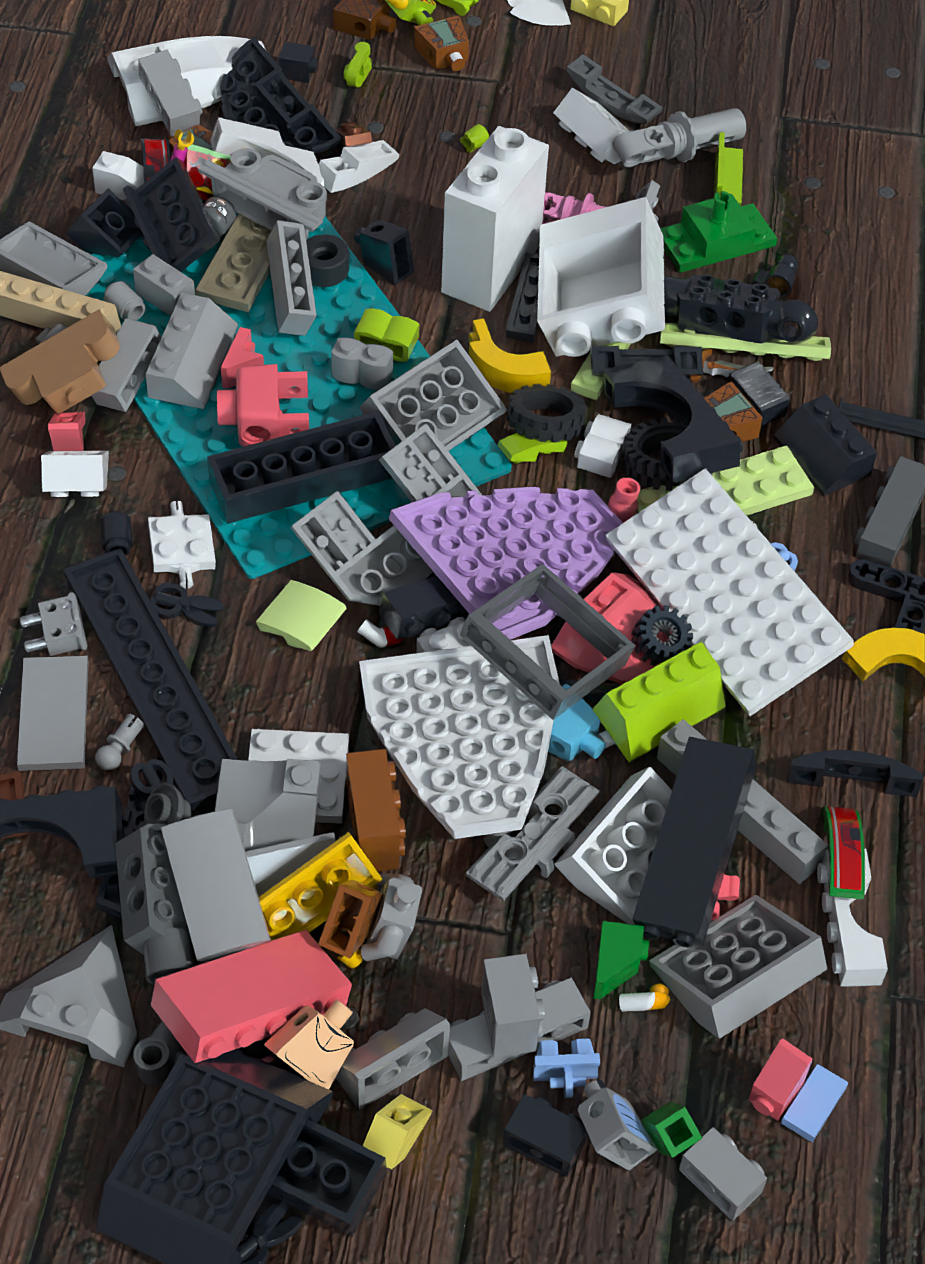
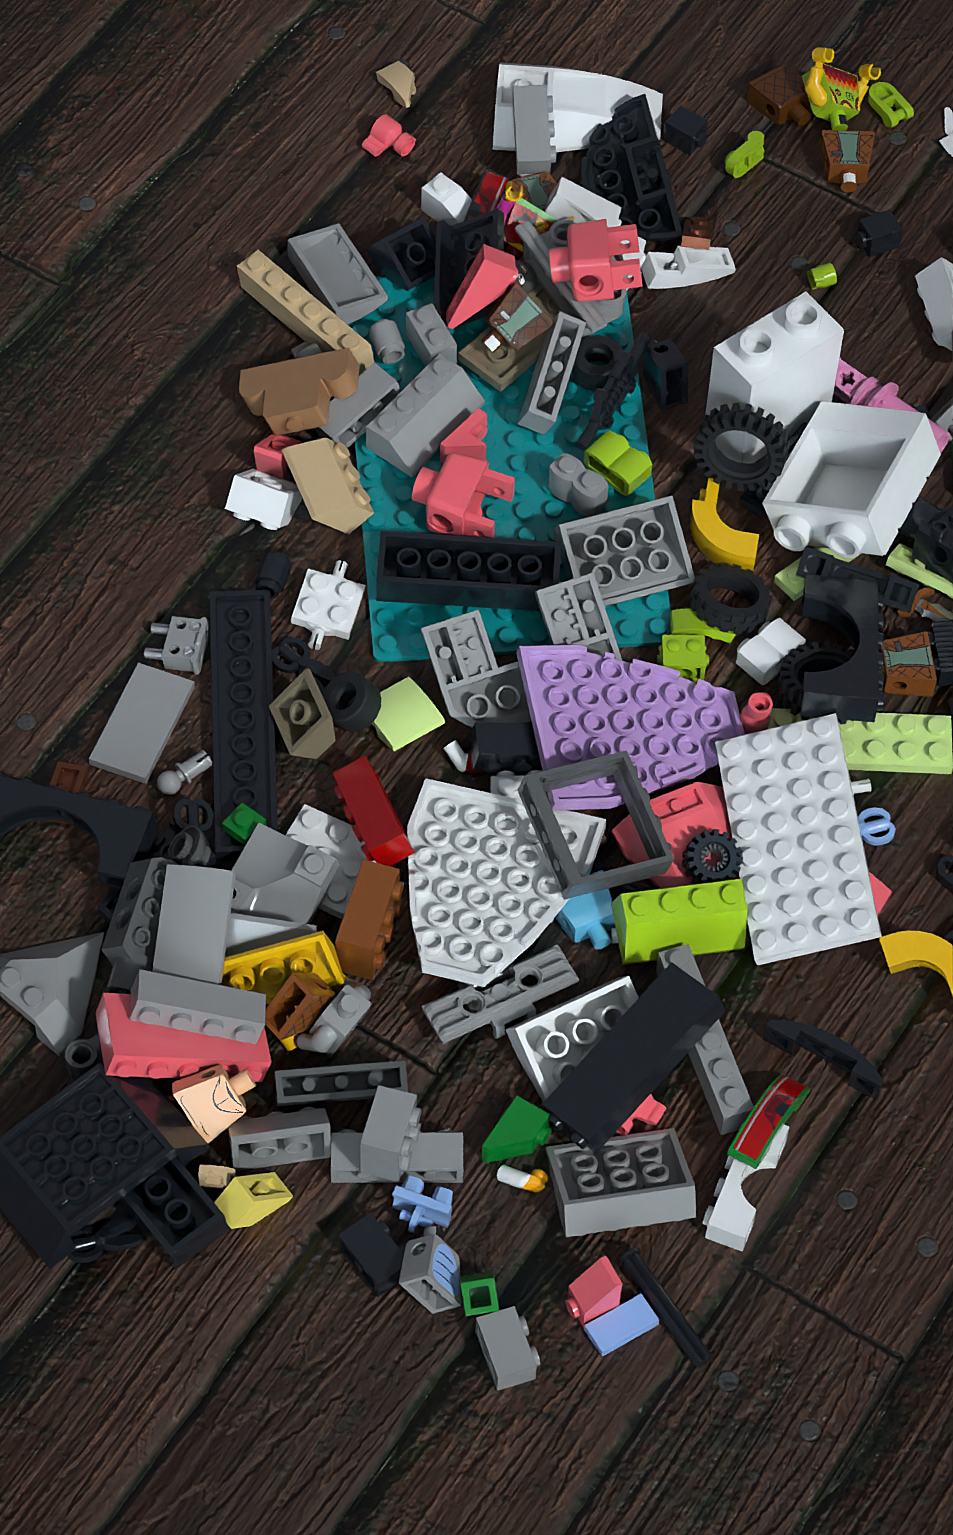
camera: 25 degrees right, 5 degrees up
(25, 95) = (399, 80): none -> tan slope
(35, 139) = (388, 133): none -> coral piece
(134, 435) = (329, 483): none -> tan slope
(195, 220) = (483, 284): none -> coral slope
(204, 768) = (242, 823): none -> green plate
(216, 646) = (304, 718): none -> dark tan slope
(236, 612) = (363, 709): none -> black tyre
(238, 241) = (515, 320): none -> torso
(256, 956) = (197, 1006): none -> light grey brick
(288, 169) = (589, 260): none -> coral piece
(327, 710) = (373, 813): none -> red brick
(351, 1122) = (215, 1176): none -> tan slope
(354, 275) = (620, 383): none -> black bar
(424, 979) = (337, 1083): none -> dark grey brick
(486, 253) = (752, 423): none -> black tyre
(503, 91) = (879, 233): none -> black brick
(532, 471) = (684, 654): none -> lime head
(849, 1069) = (664, 1306): none -> black axle

